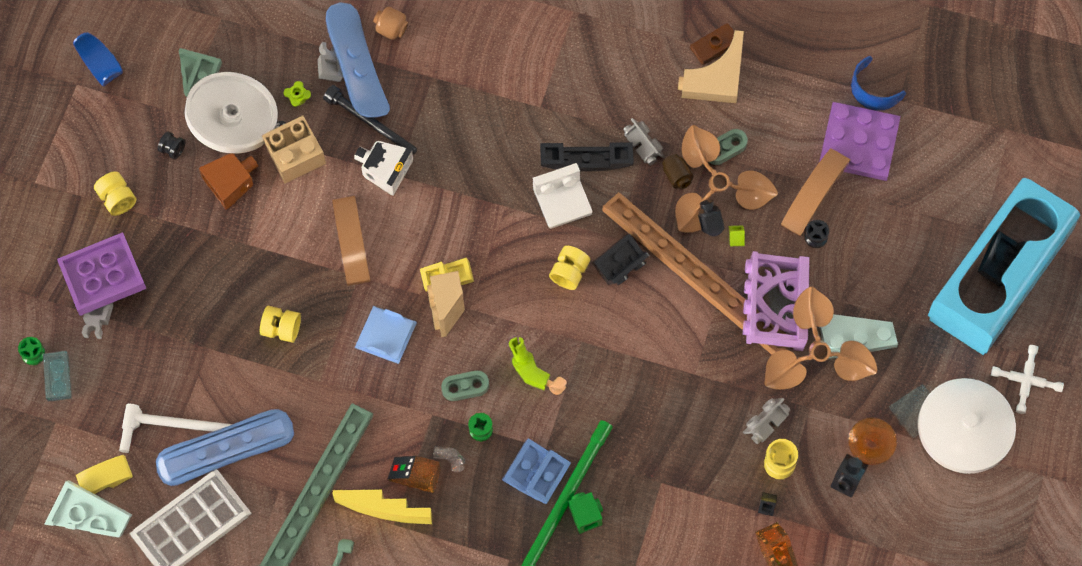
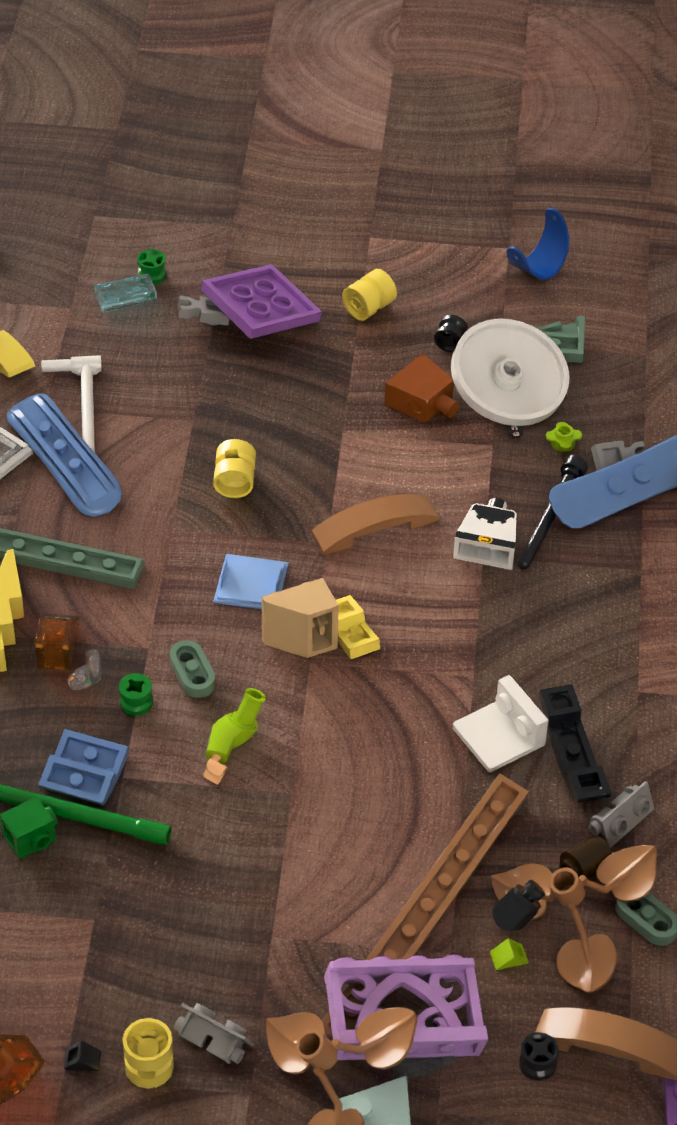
camera: 75 degrees right, 20 degrees down
(294, 149) = (479, 440): tan slope -> none
(569, 268) = (393, 750): light yellow wheel -> none
(620, 260) = (424, 809): black bracket -> none

